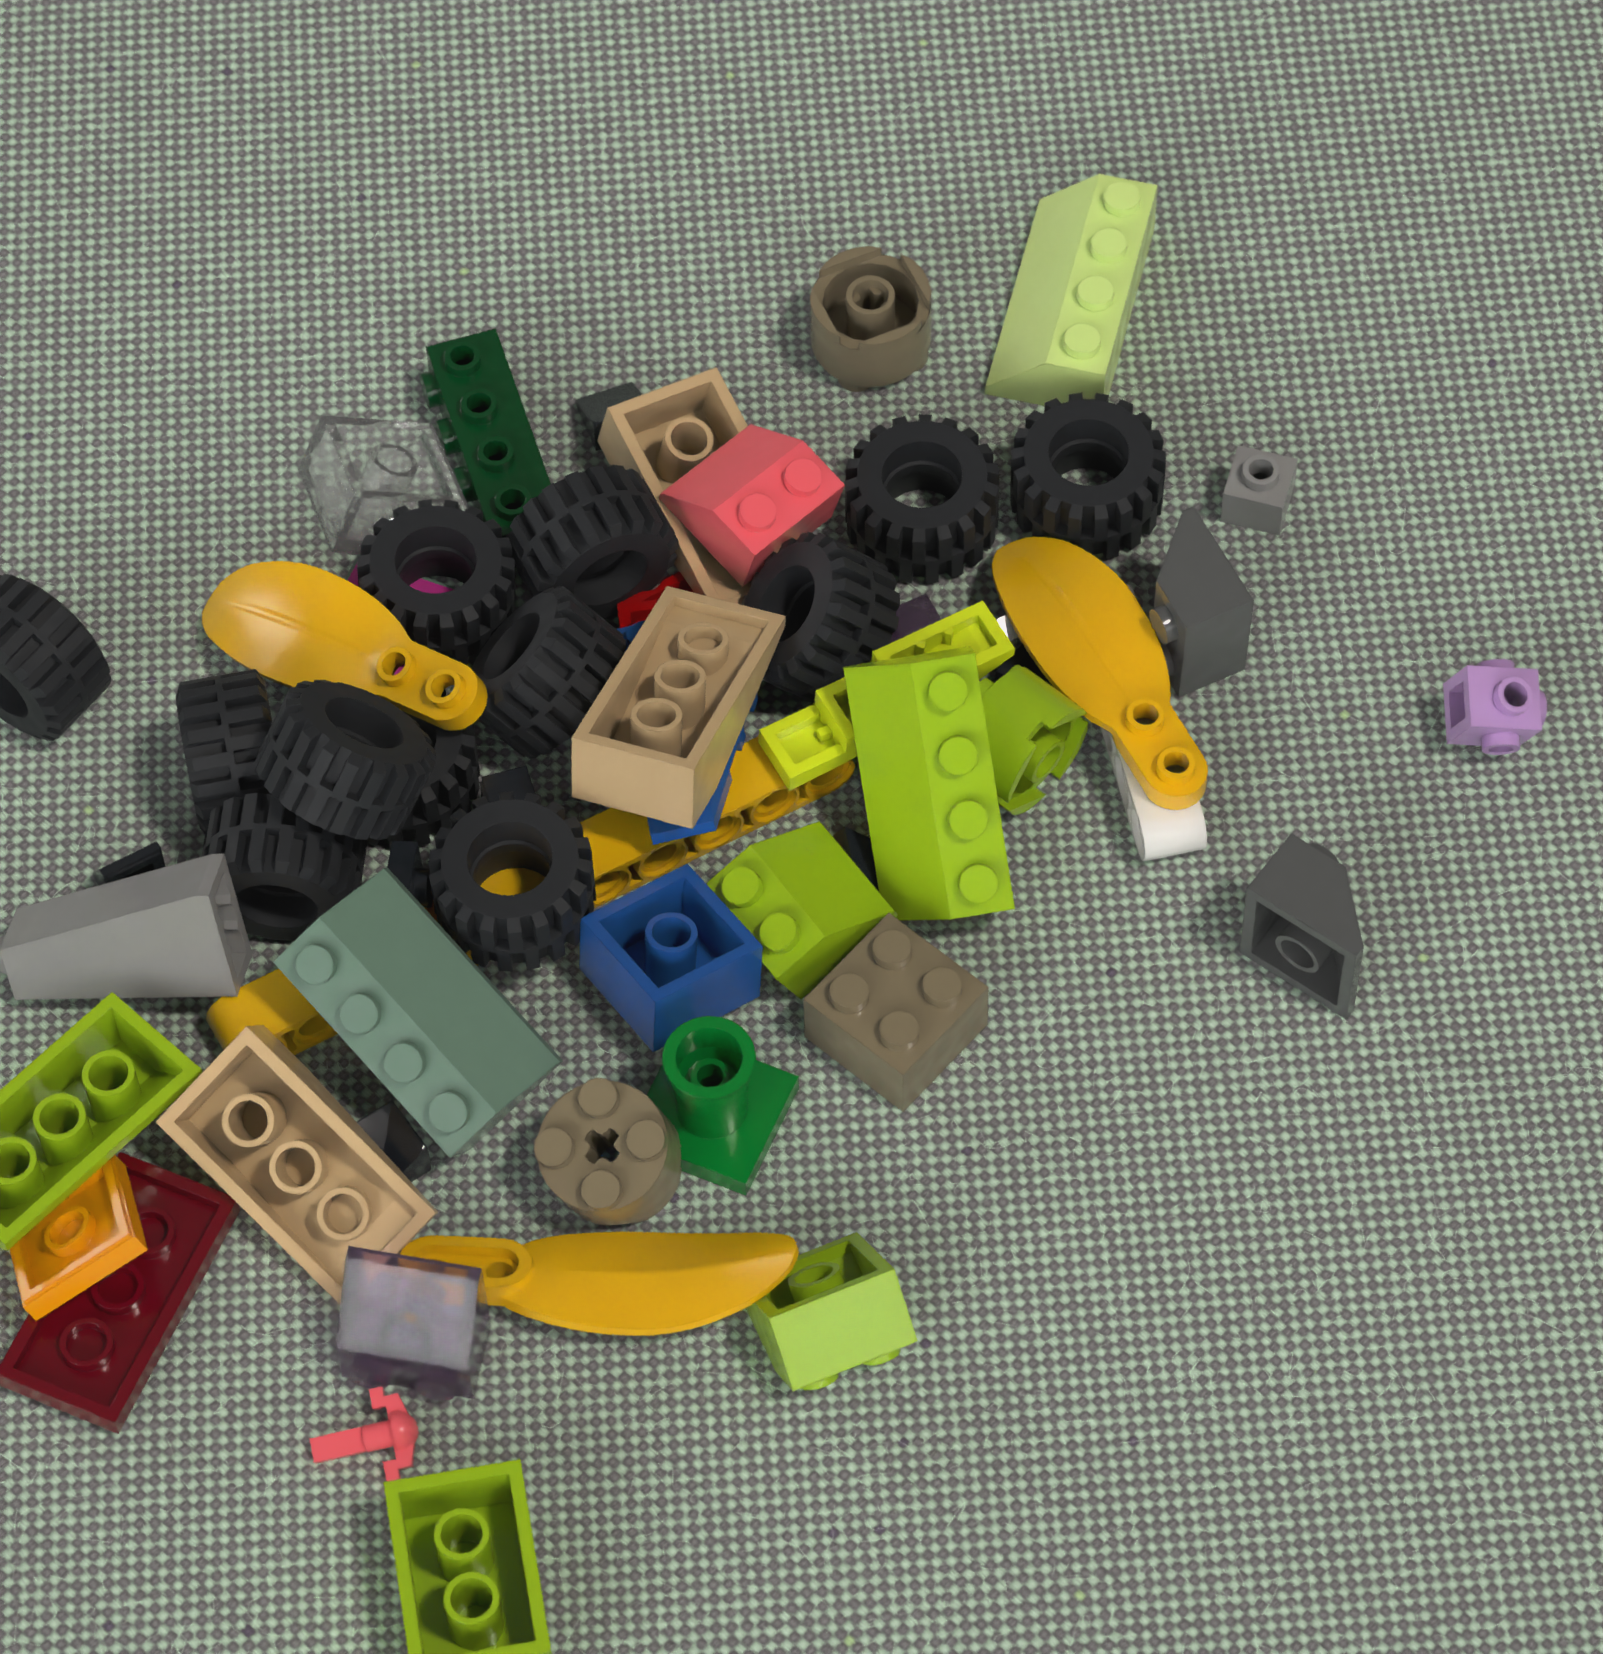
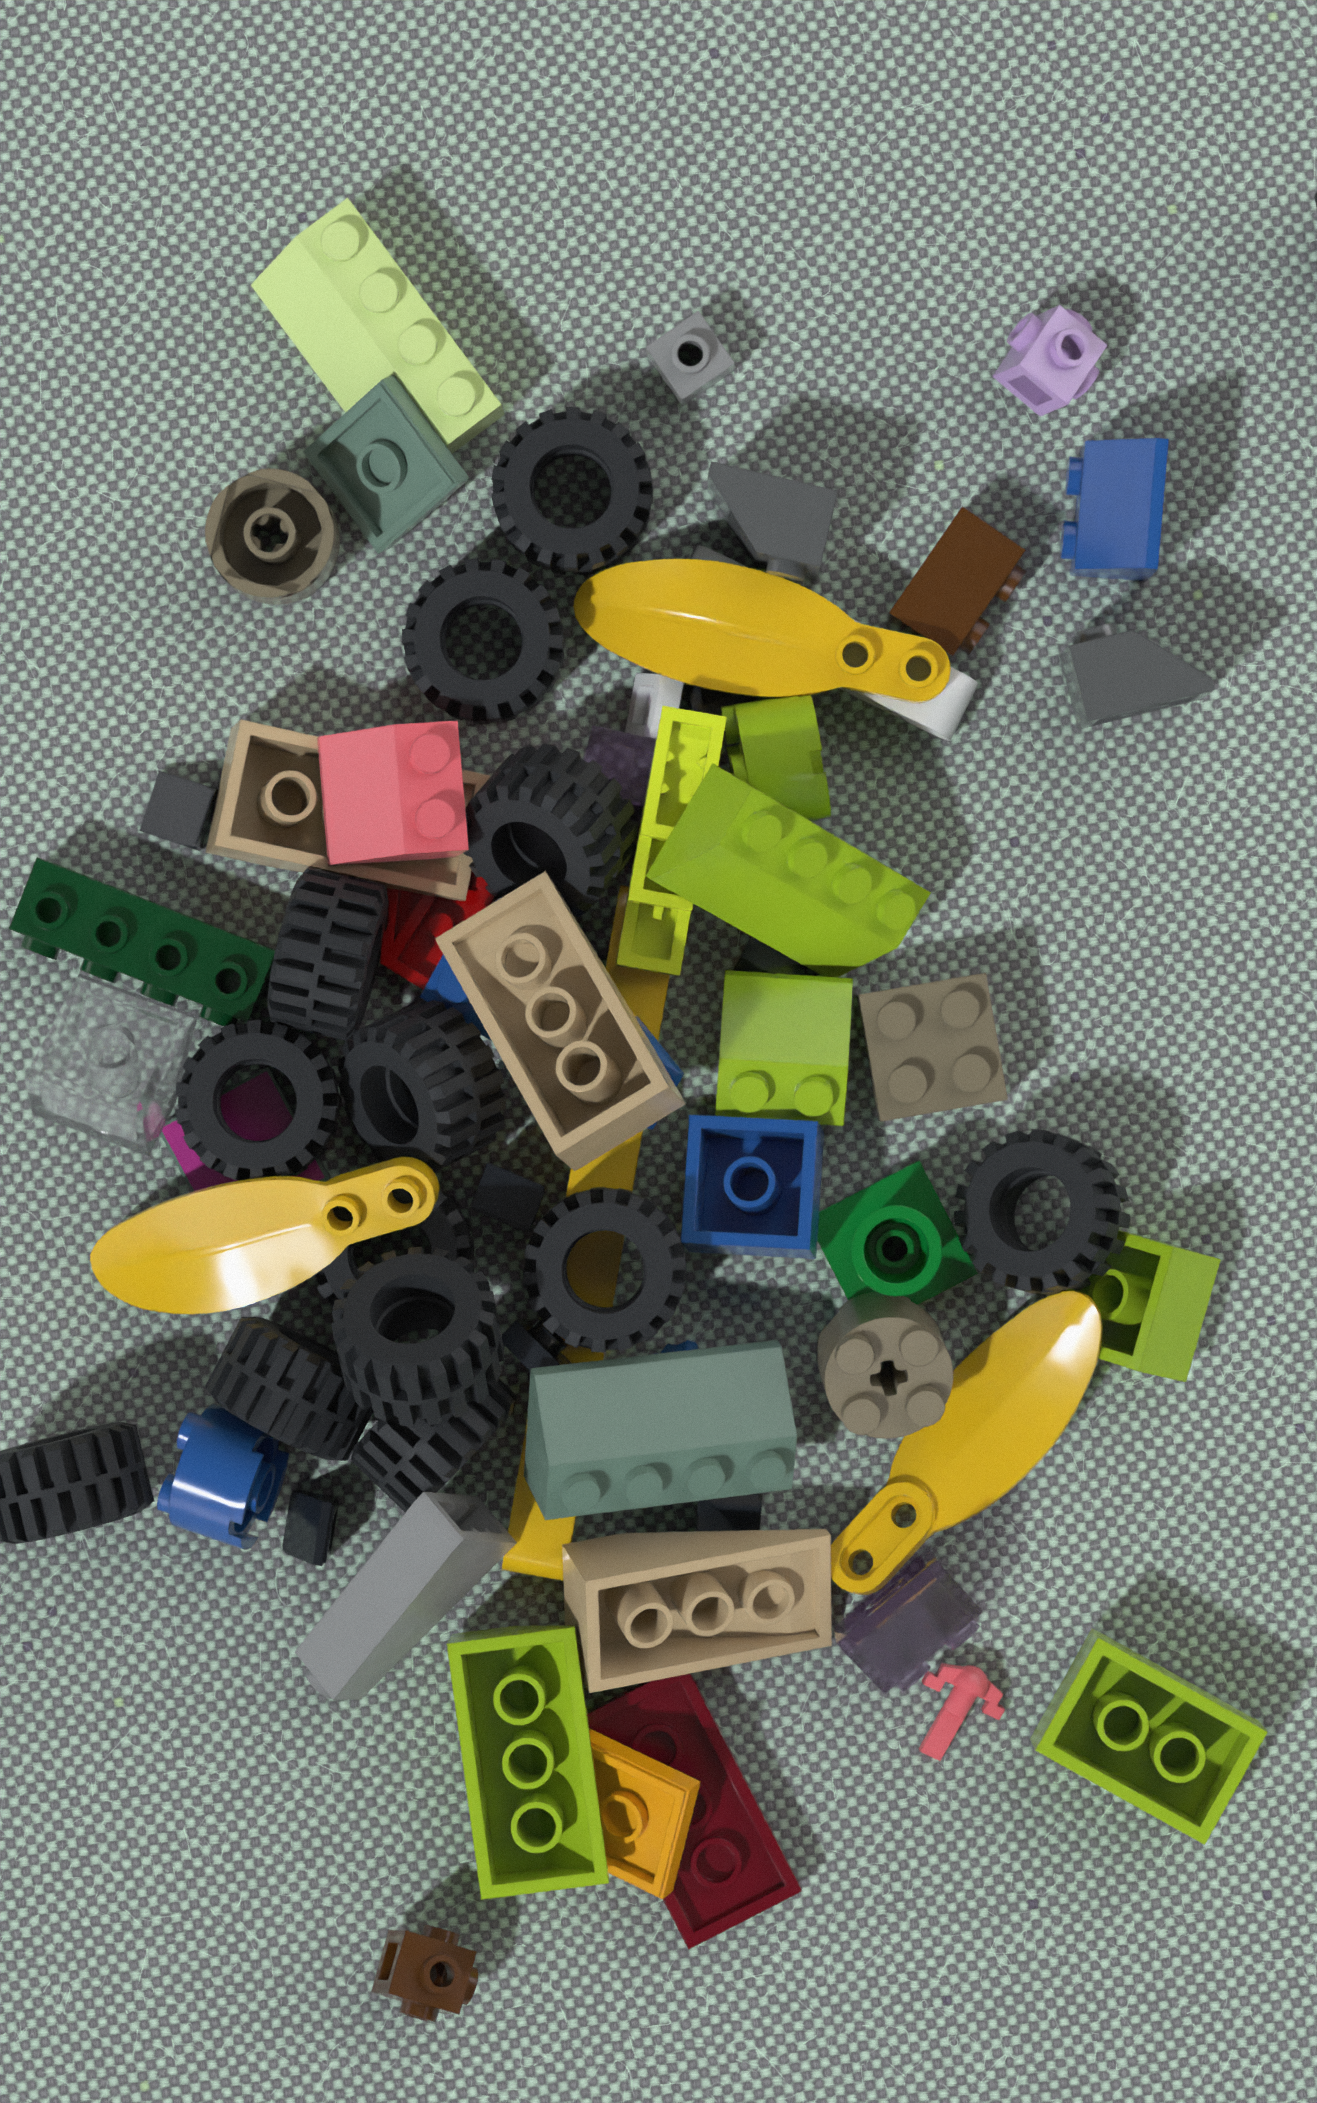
camera: 55 degrees left, 30 degrees up
(121, 766) = (223, 1477): none -> blue brick
(836, 1172) = (993, 1201): none -> black tyre
(991, 350) = (386, 464): none -> sand green tile
(1268, 774) = (958, 584): none -> reddish brown brick
(1431, 834) = (1117, 508): none -> blue slope

